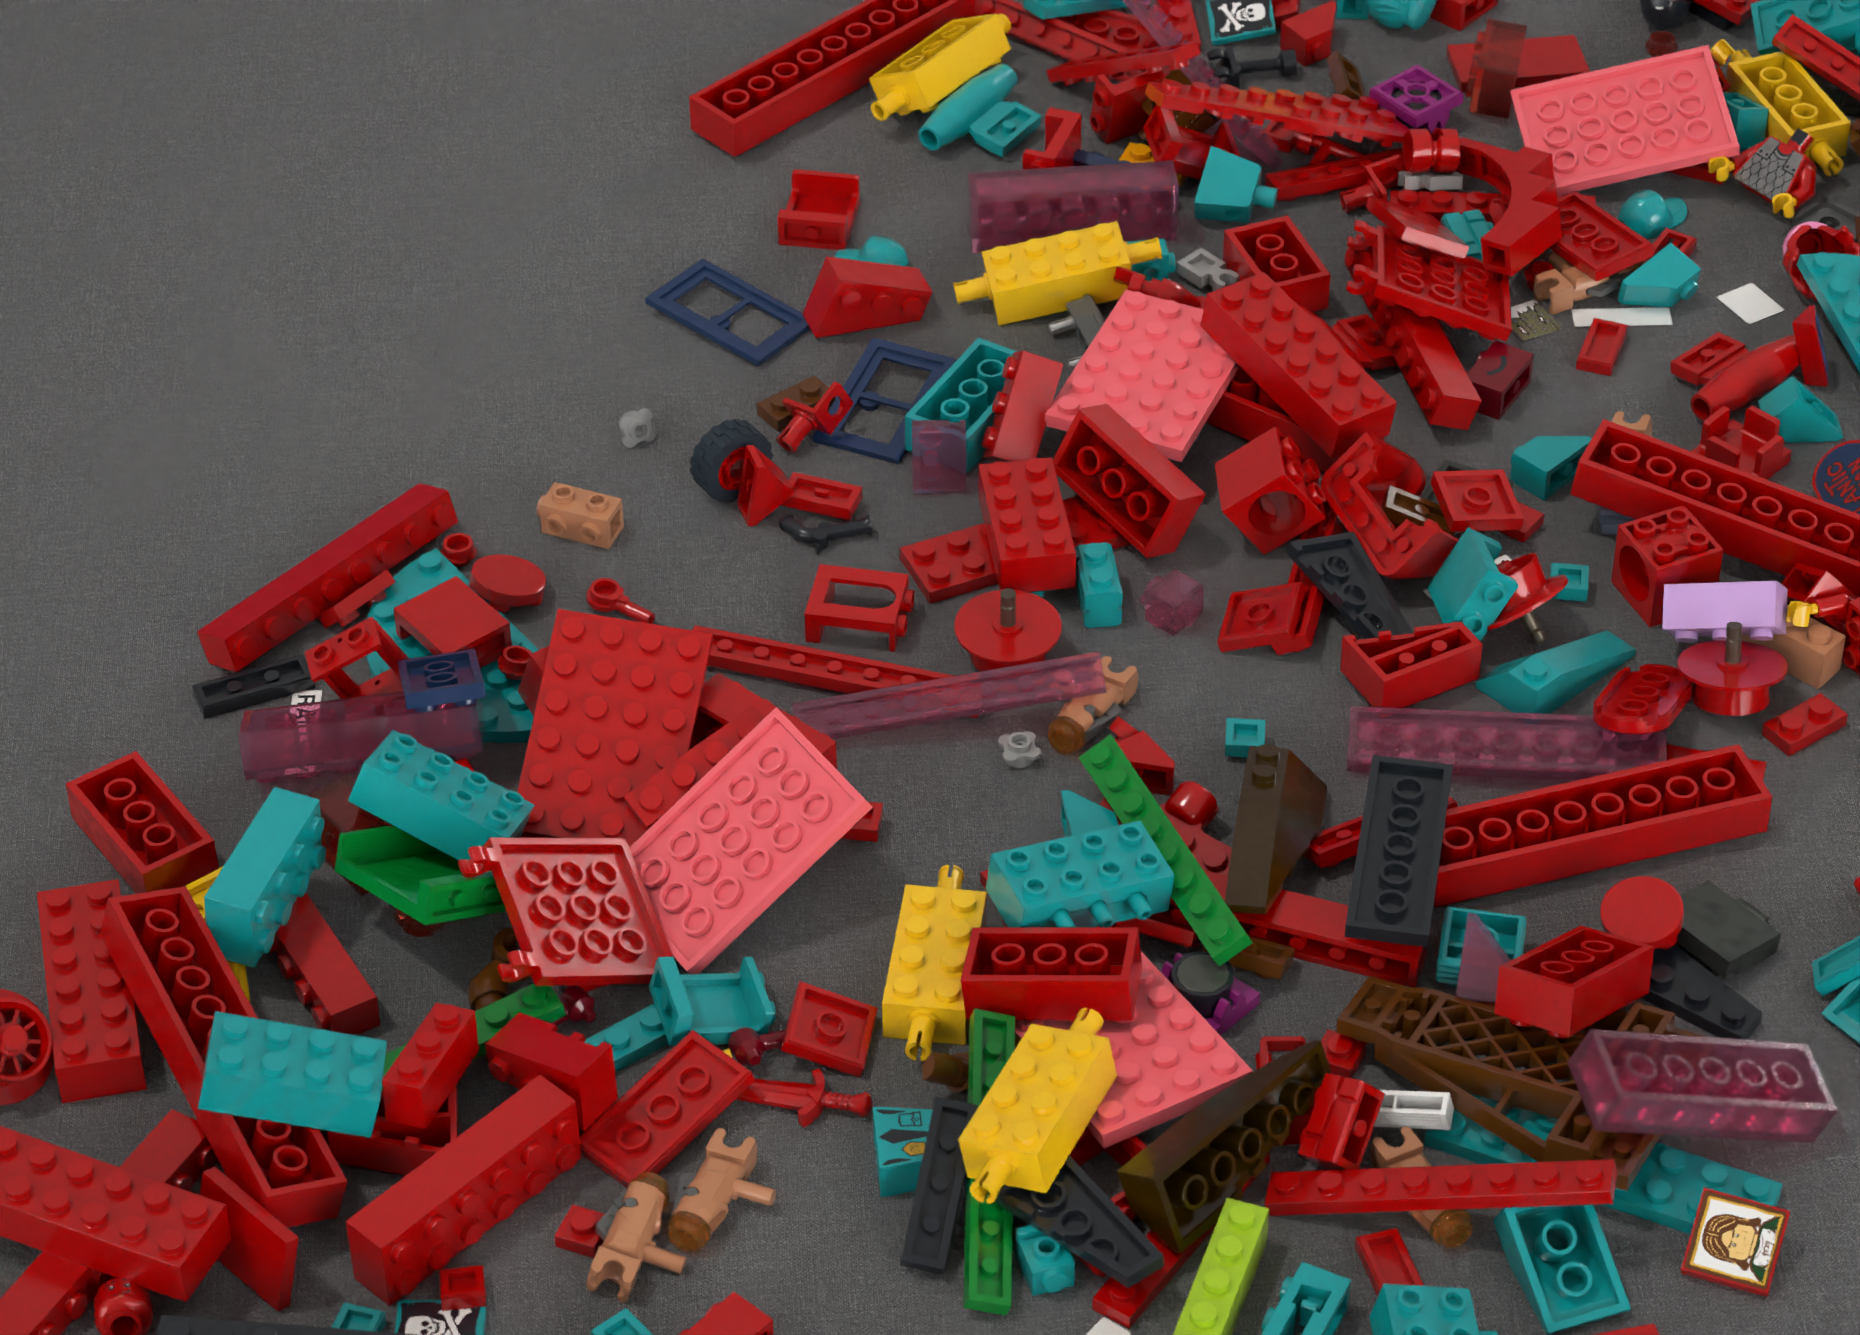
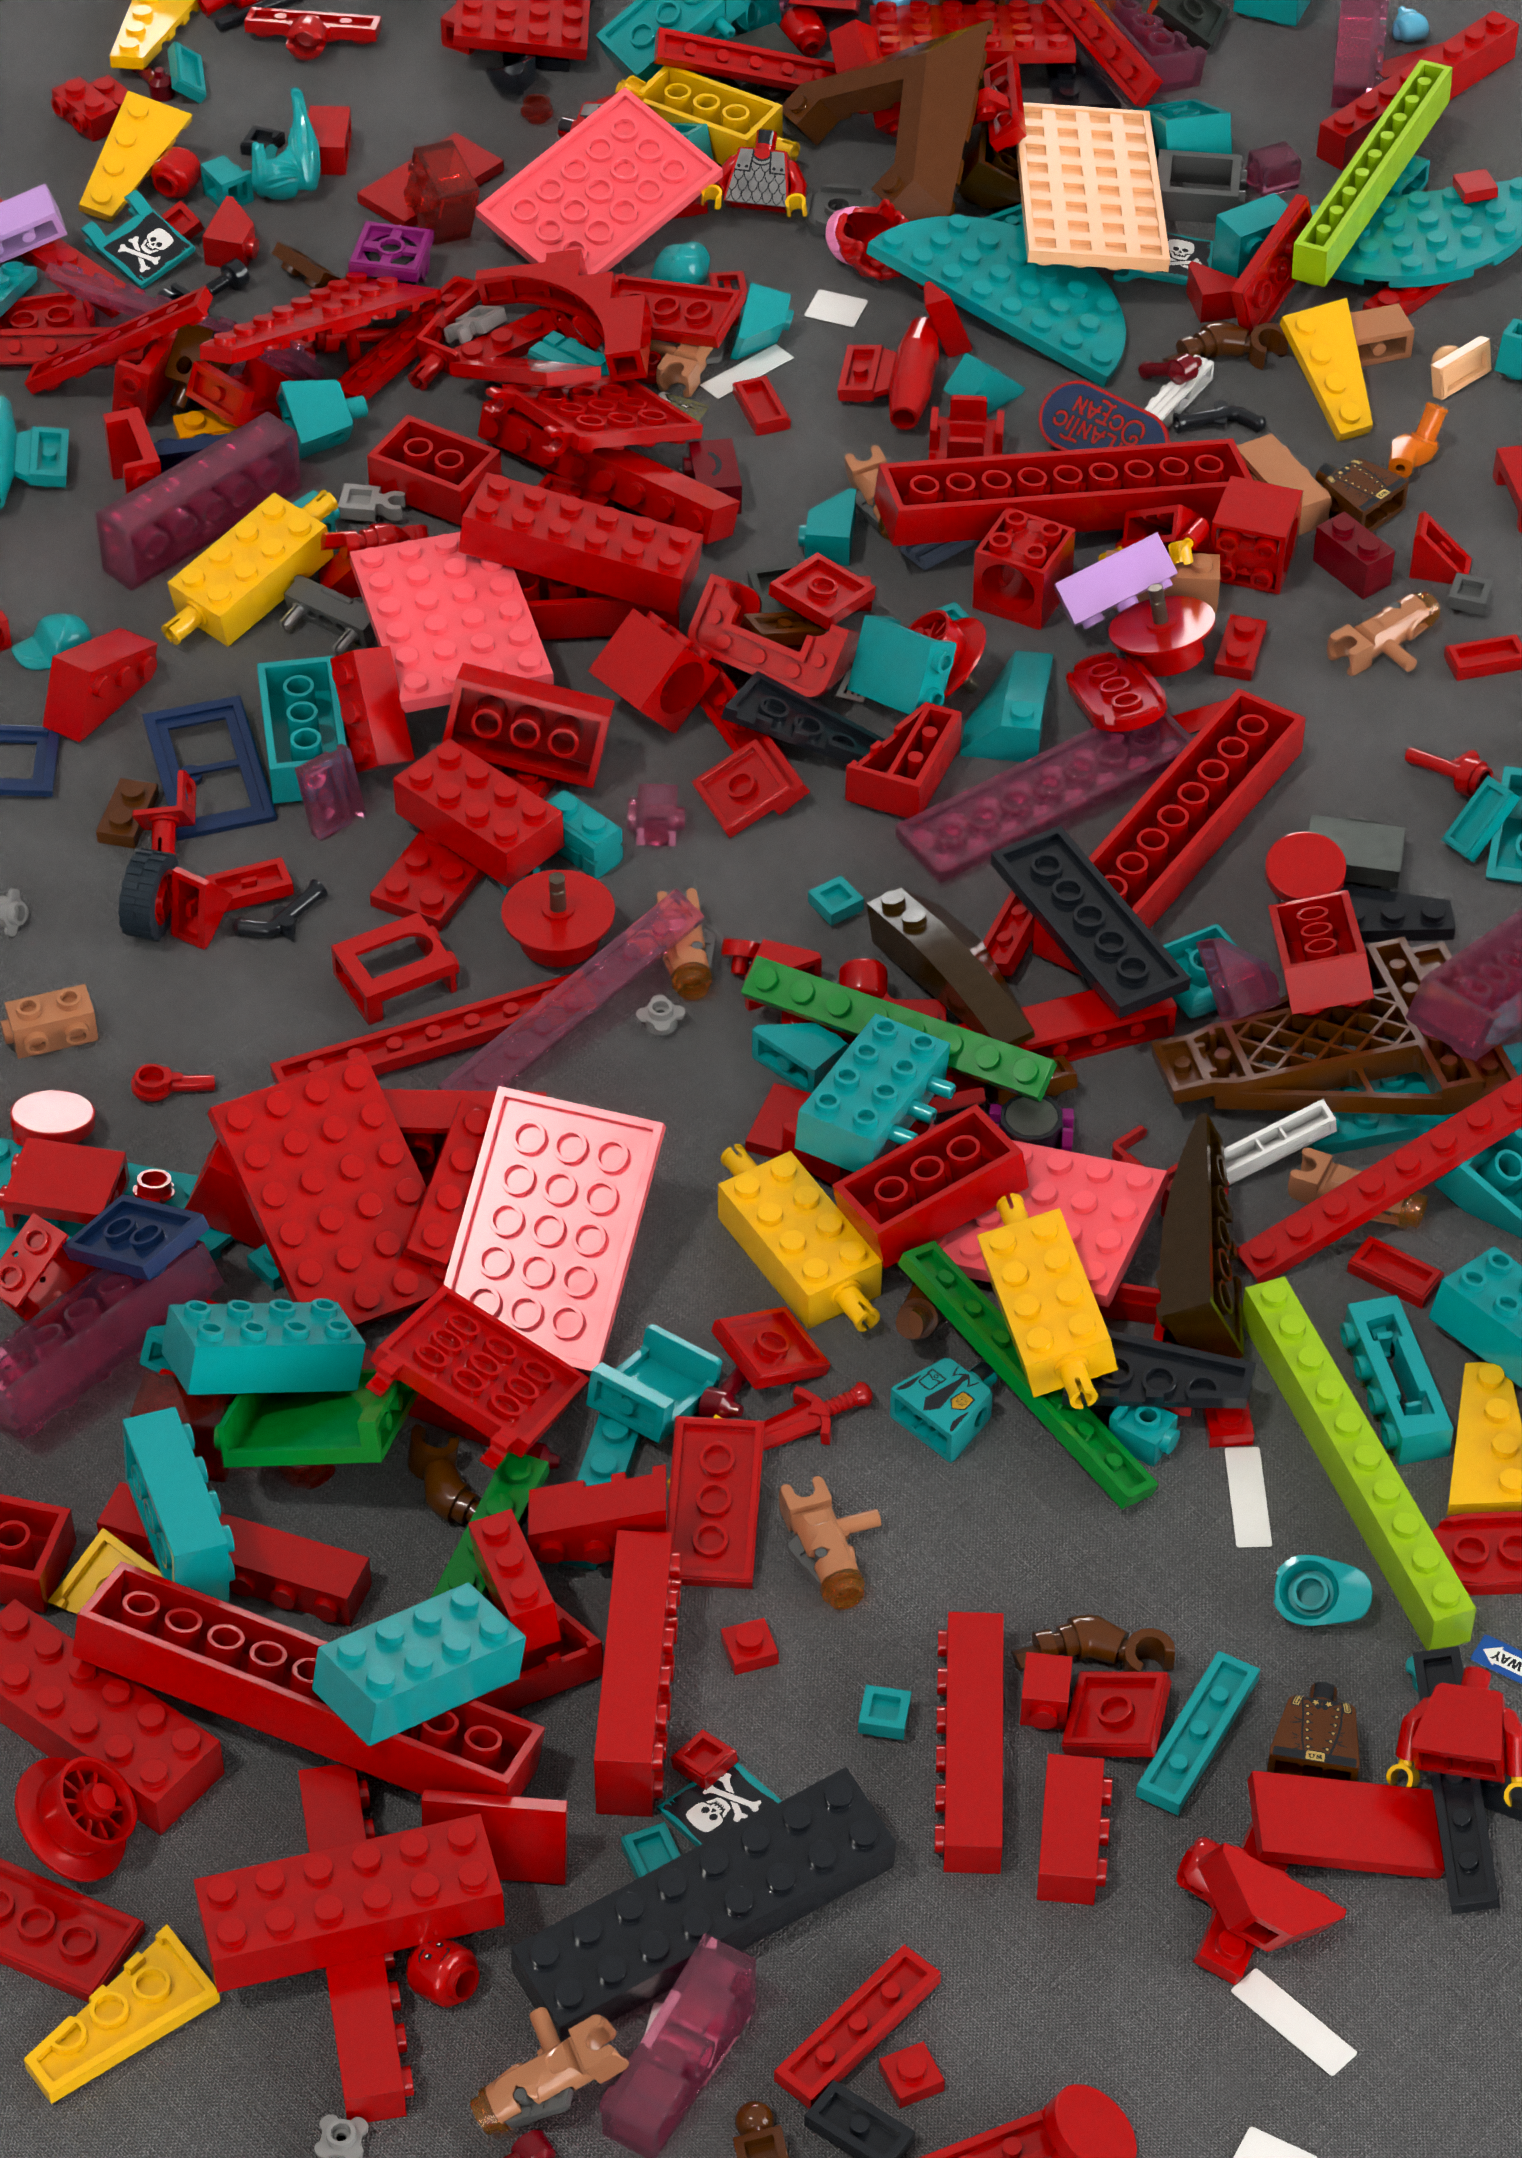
camera: 40 degrees left, 5 degrees up
(629, 1234) = (793, 1619): nougat piece -> none
(937, 1188) = (1014, 1419): black plate -> none
(1340, 1123) = (1262, 1174): red brick -> none
(1343, 1053) = (1175, 1122): red plate -> none
(1432, 150) = (464, 295): red wheel -> none

